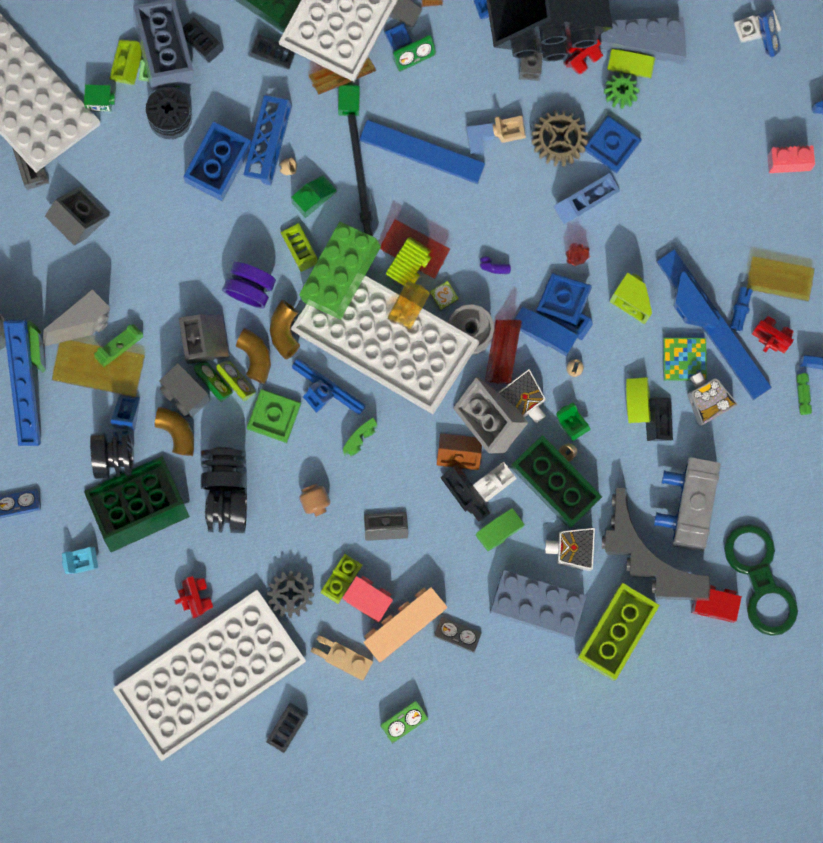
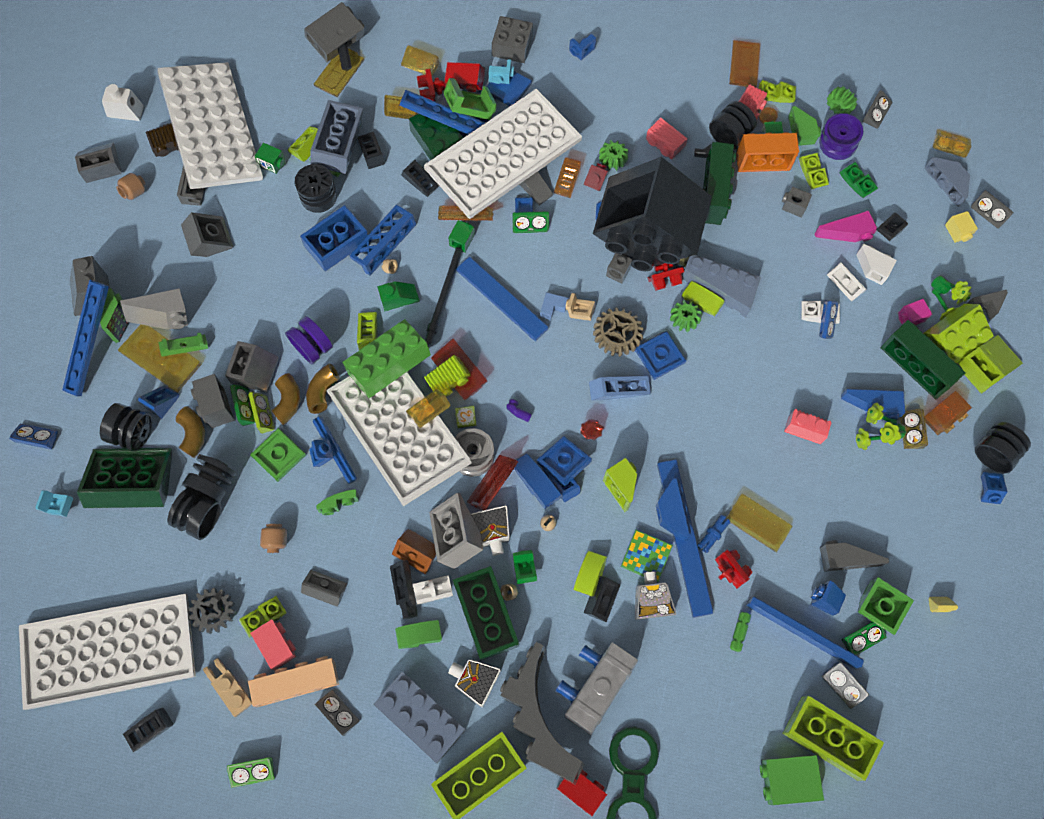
camera: 30 degrees right, 10 degrees down
(190, 598) = (130, 586): red hips -> none

